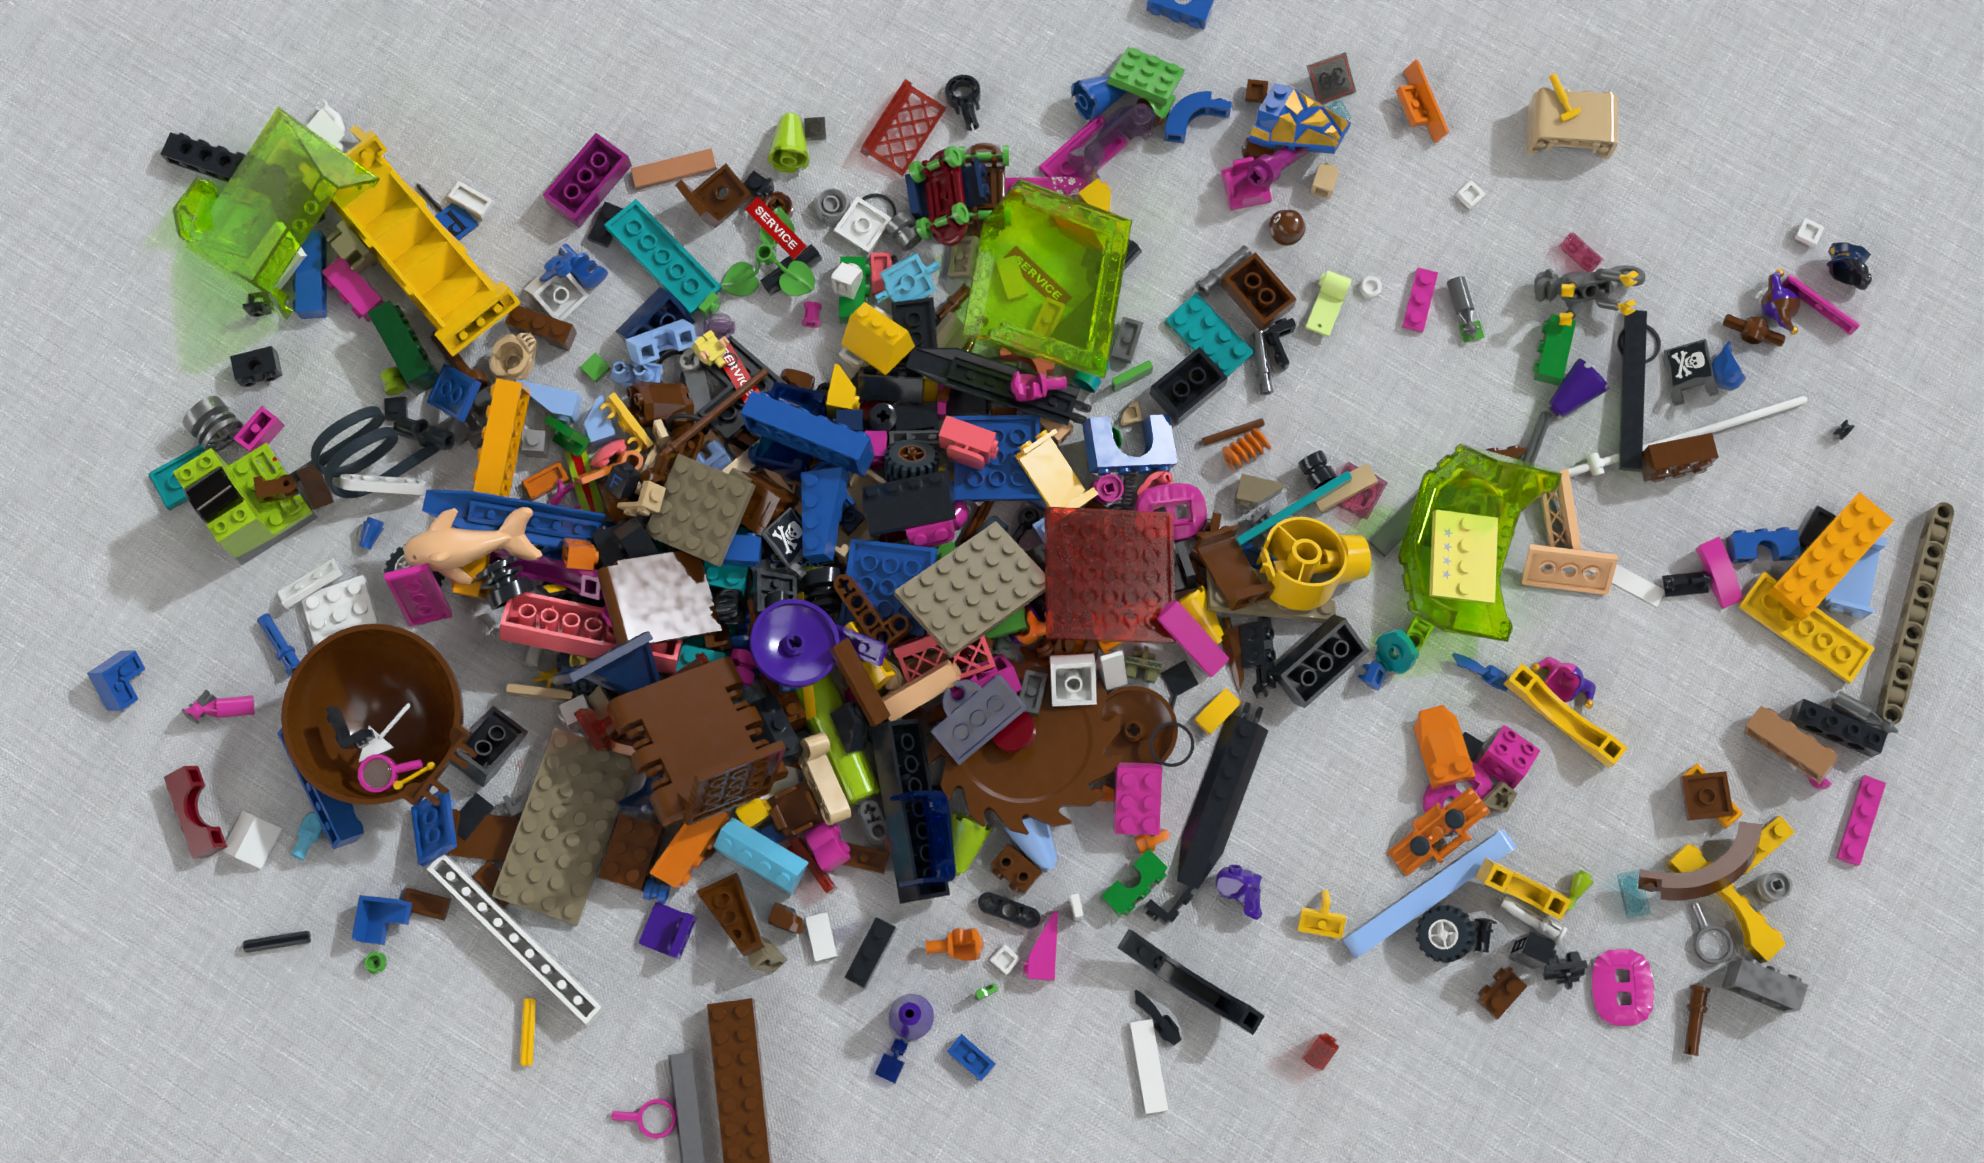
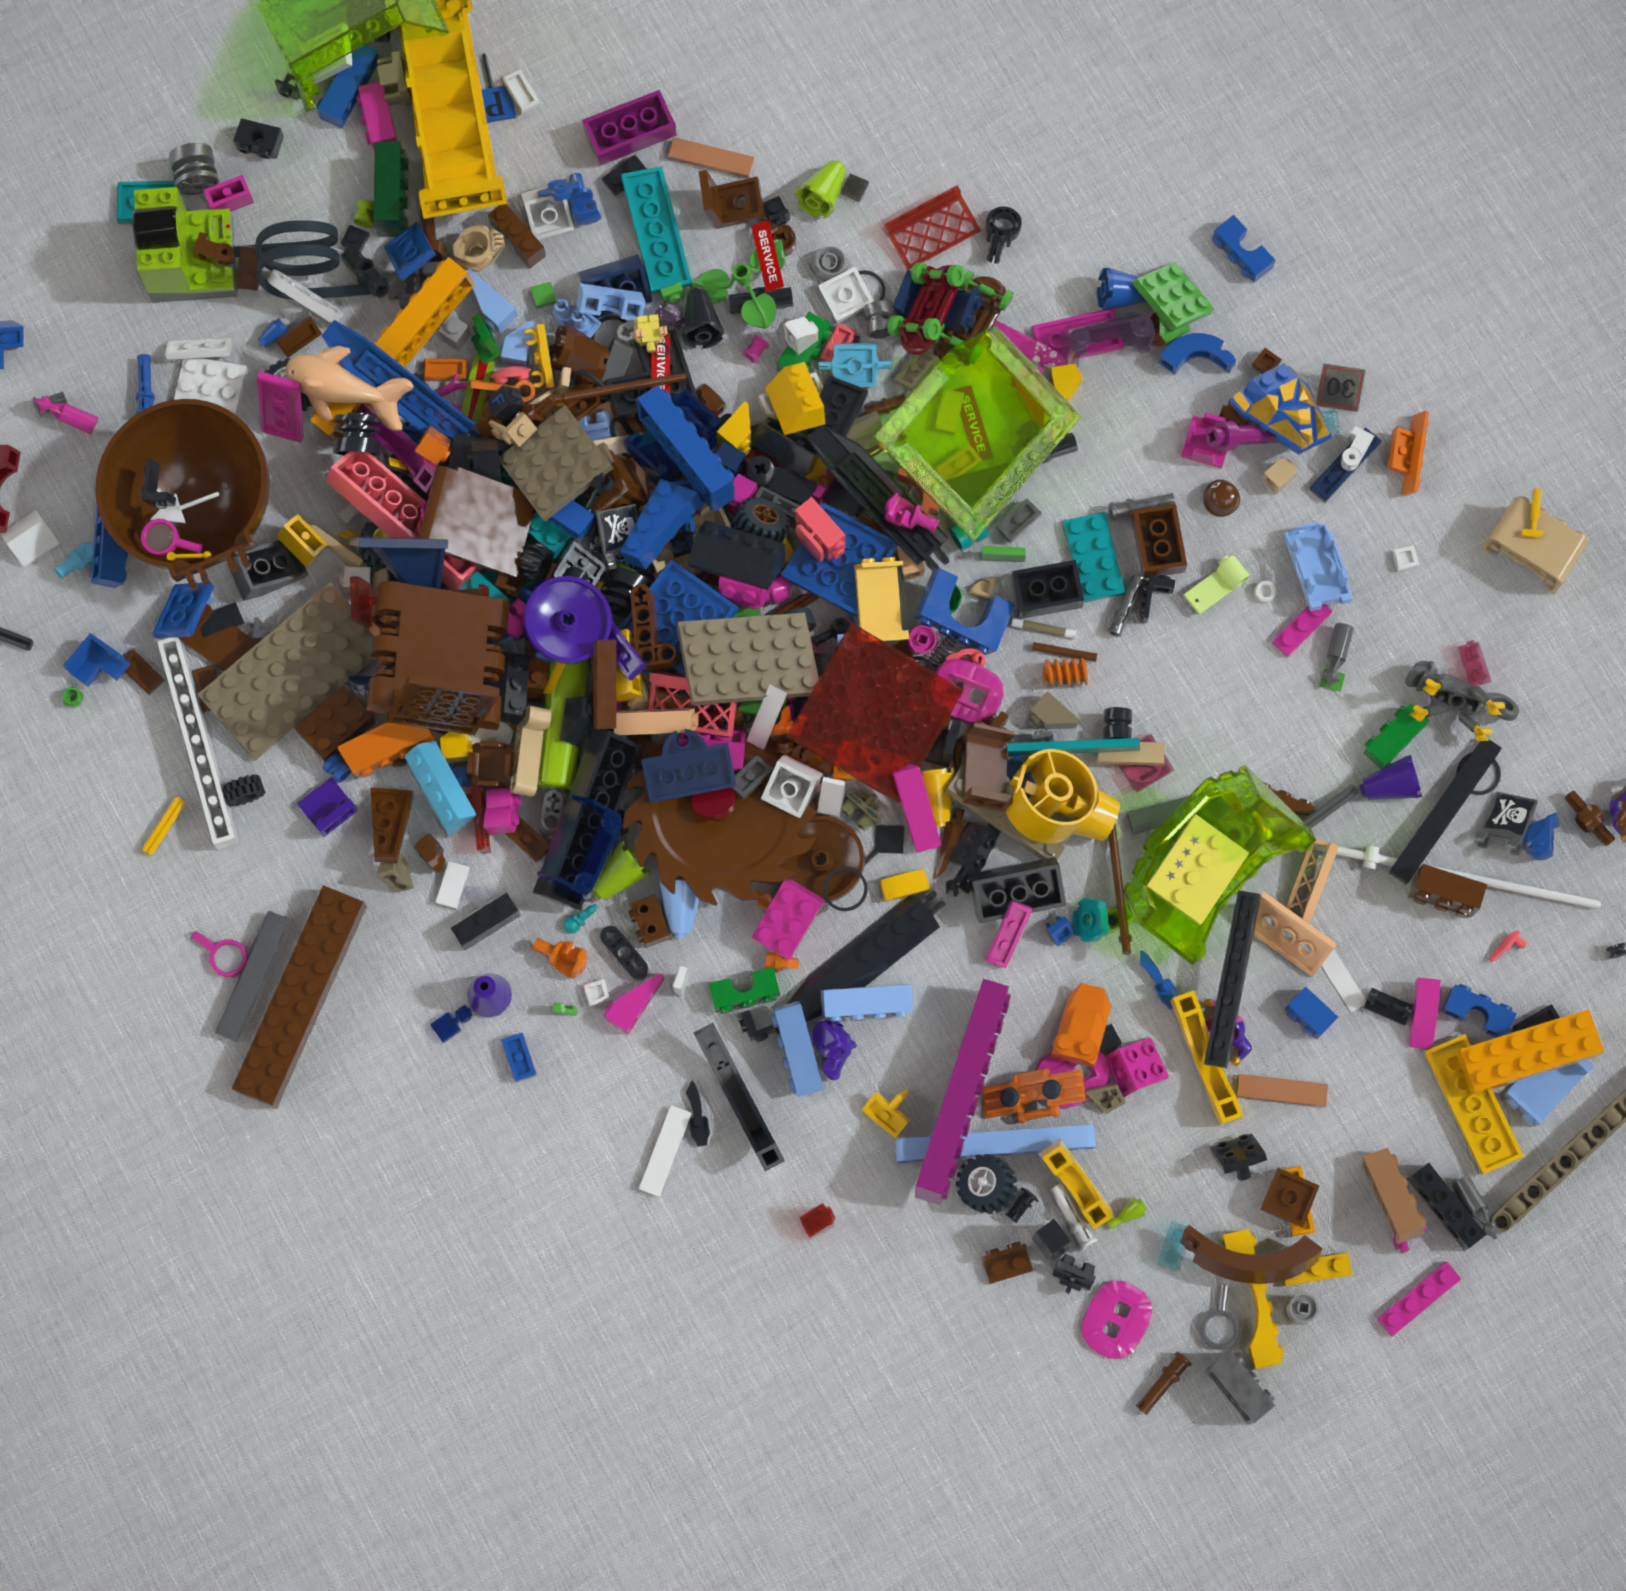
camera: 30 degrees right, 0 degrees up
(395, 523) = (298, 336): none -> reddish brown tile
(506, 704) = (302, 540): none -> yellow brick
(583, 959) = (243, 790): none -> black tyre
(750, 315) = (701, 321): none -> black cone
(752, 506) = (599, 487): none -> black bar
(948, 910) = (573, 923): none -> teal bar
(1017, 631) = (766, 717): none -> white sticker
(1203, 421) = (1069, 633): none -> dark tan bar
(1213, 909) = (797, 1048): none -> medium blue brick
(1247, 832) = (867, 1000): none -> light blue brick
(1334, 703) = (1008, 934): none -> dark pink tile
(1373, 142) = (1335, 475): none -> dark blue tile
(1377, 122) = (1353, 455): none -> white leg
(1379, 865) = (960, 1097): none -> magenta brick
(1403, 241) = (1318, 565): none -> light blue piece
(1437, 651) = (1124, 938): none -> reddish brown bar
(1548, 635) = (1232, 979): none -> black tile
(1626, 626) = (1310, 1013): none -> blue brick
(1641, 706) = (1282, 1090): none -> nougat tile
(1642, 783) = (1239, 1155): none -> black plate
(1749, 476) = (1505, 945): none -> coral bar

